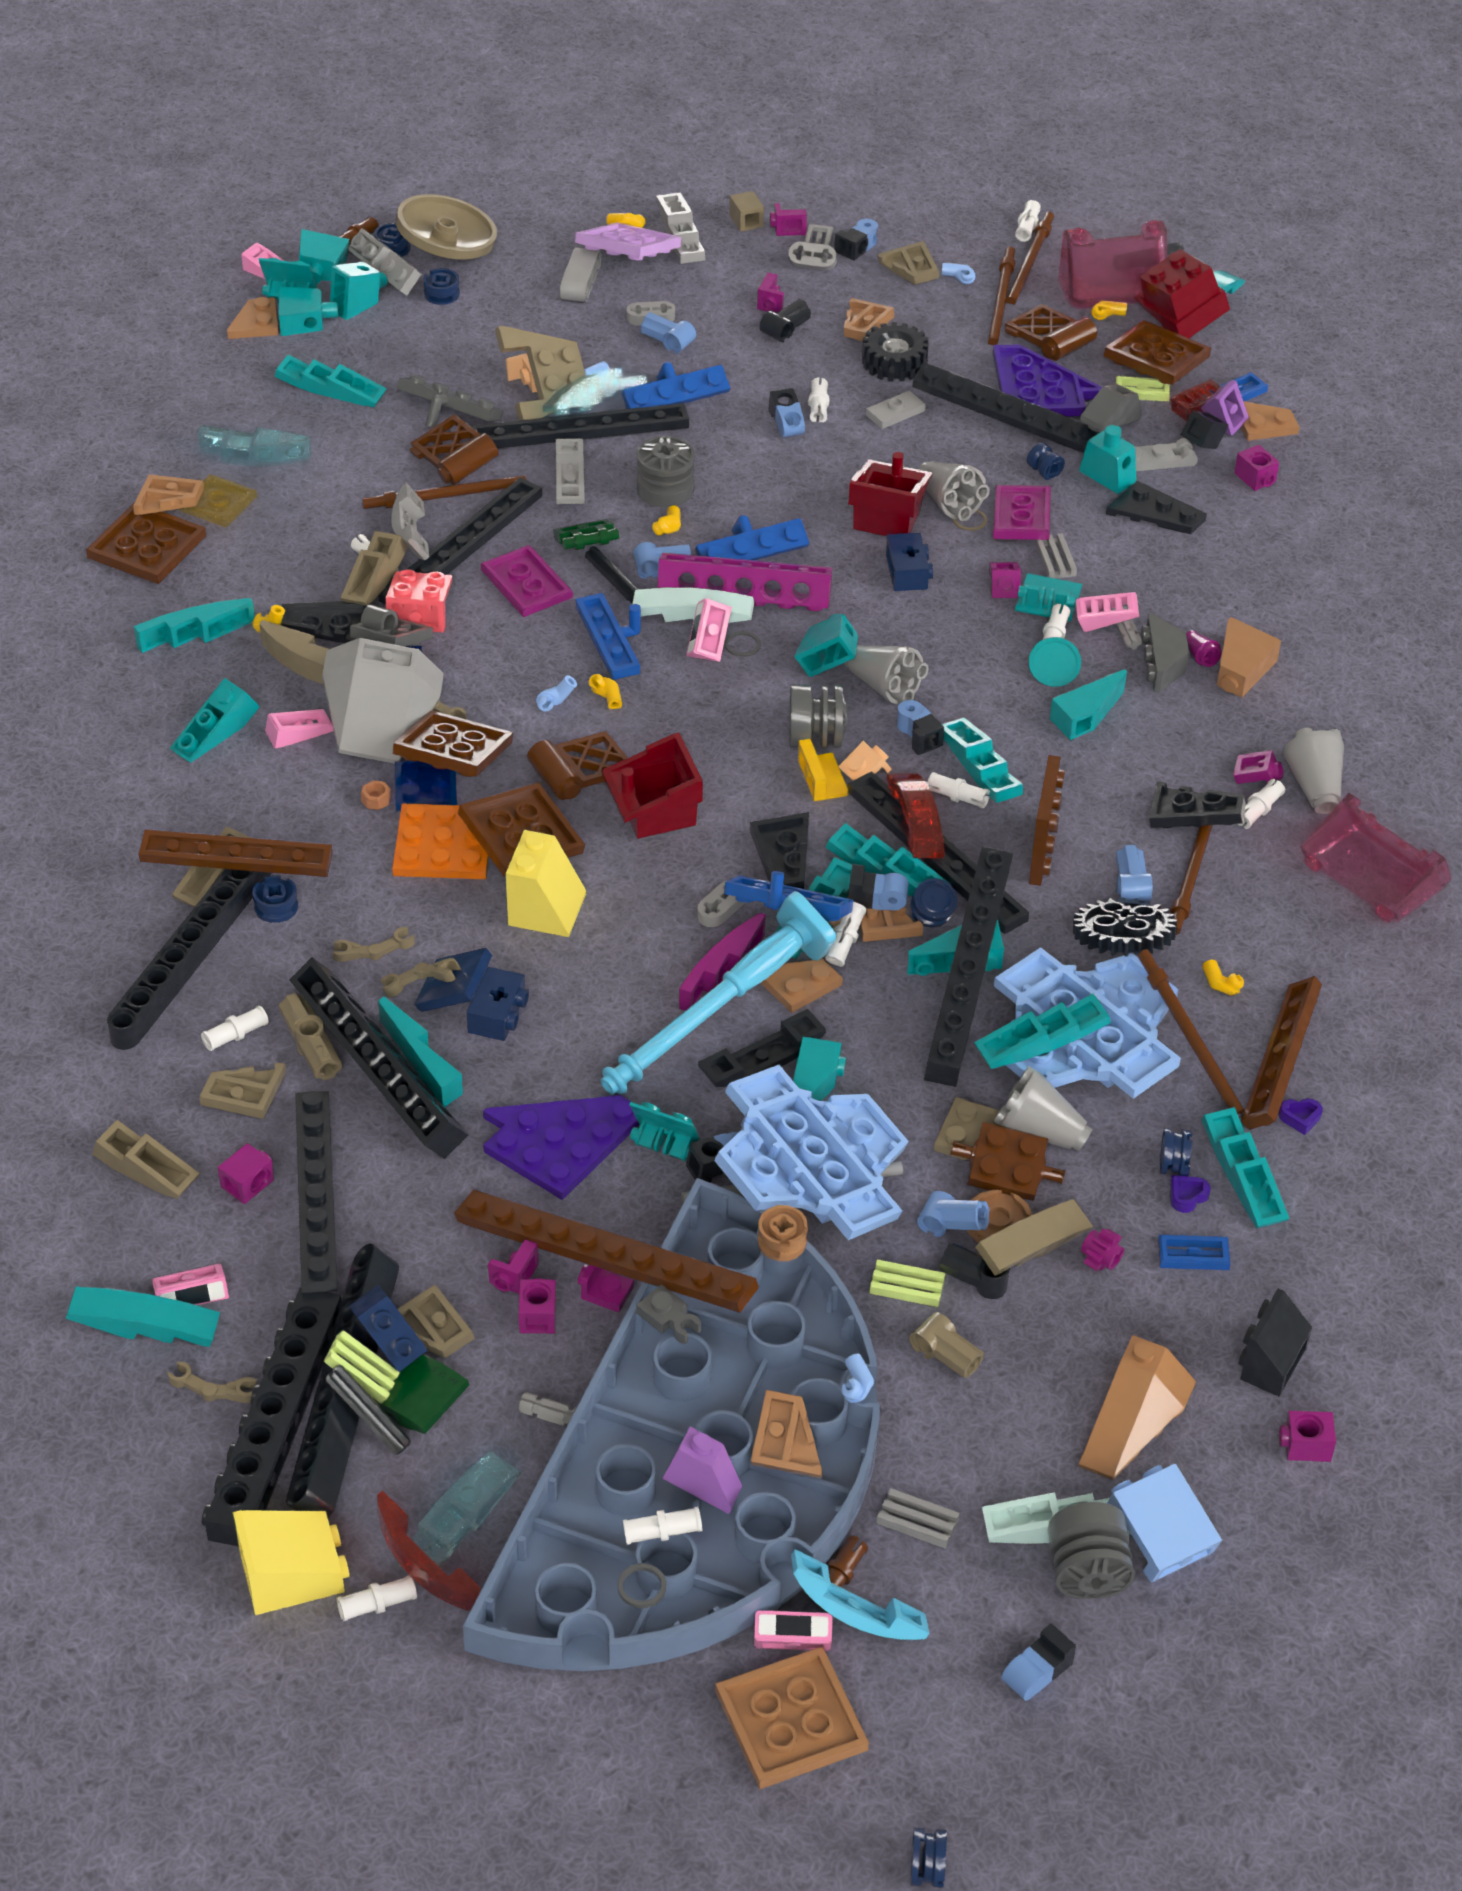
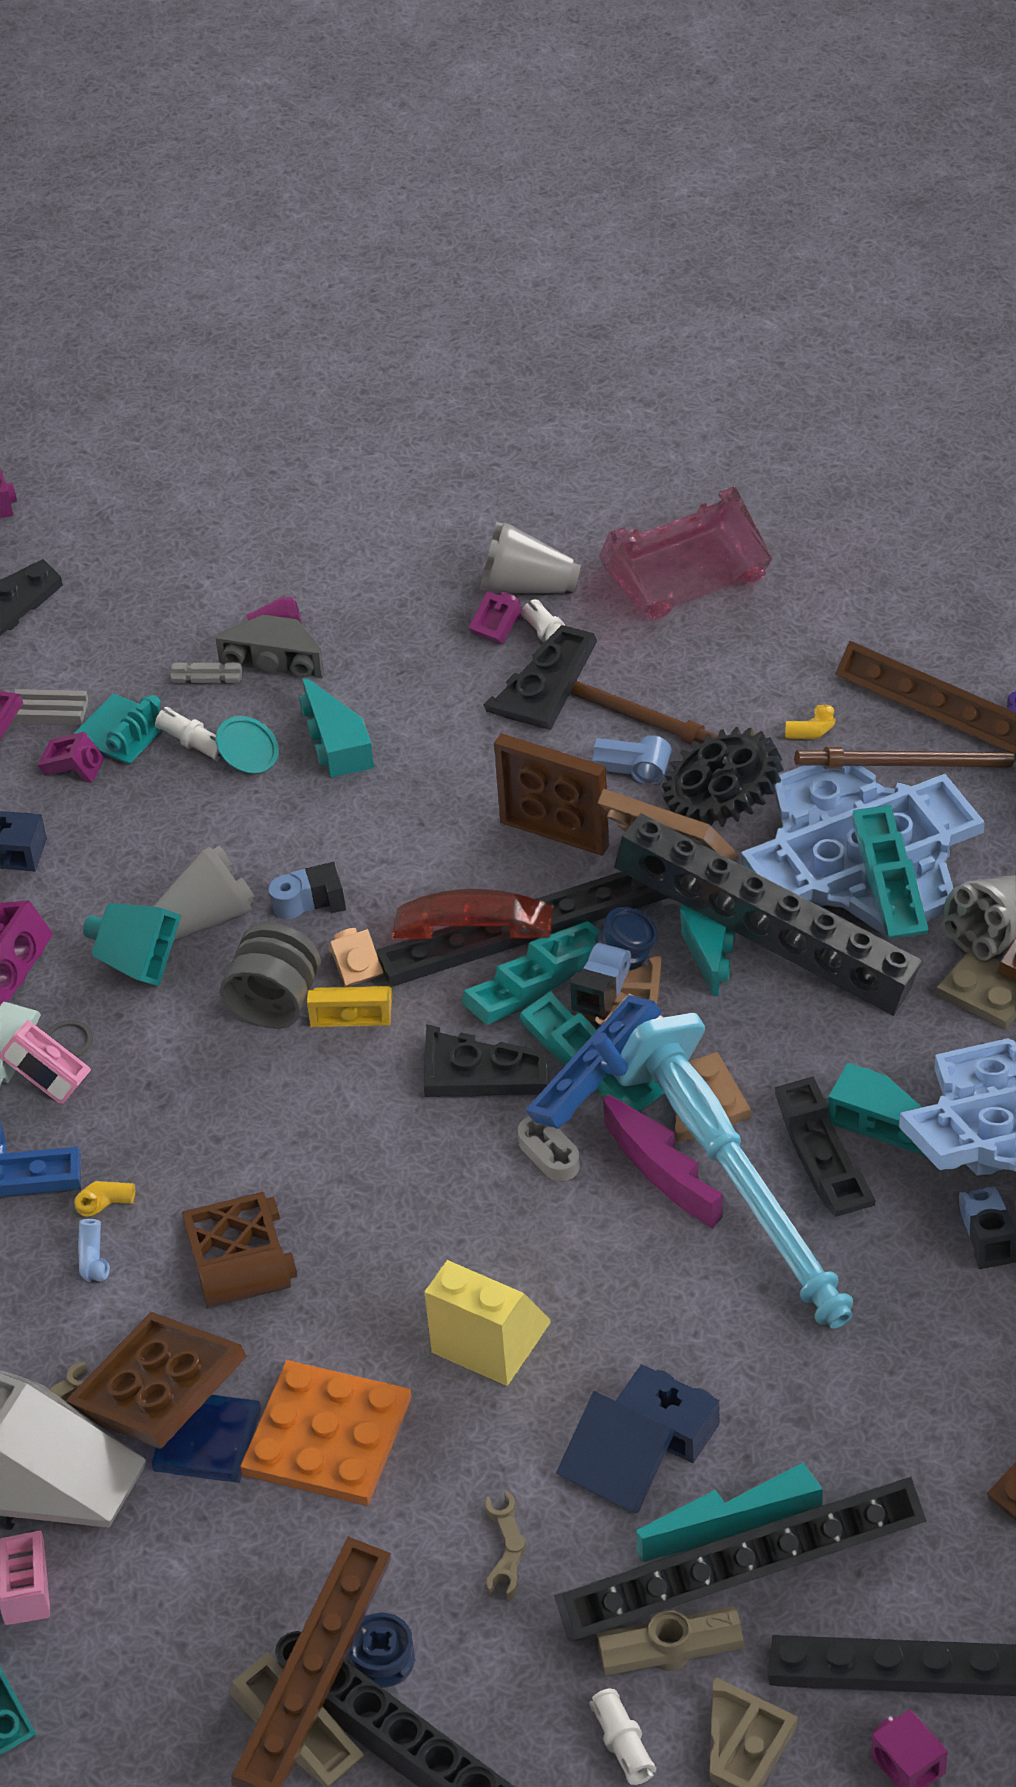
camera: 70 degrees left, 0 degrees up
(376, 795) = (209, 1496): nougat tile -> none
(440, 970) = (589, 1483): dark tan piece -> none
(503, 817) = (355, 1329): reddish brown plate -> none
(559, 1140) = (913, 1388): dark purple wing -> none
(655, 1127) = (941, 1271): teal hinge -> none
(657, 787) = (349, 1154): dark red piece -> none
(958, 790) = (434, 878): white pin -> none
(983, 764) = (395, 848): teal slope -> none
(1038, 894) = (626, 809): none -> medium nougat plate
(1097, 611) = (186, 702): bright pink slope -> none
(1245, 657) = (314, 580): medium nougat slope -> none

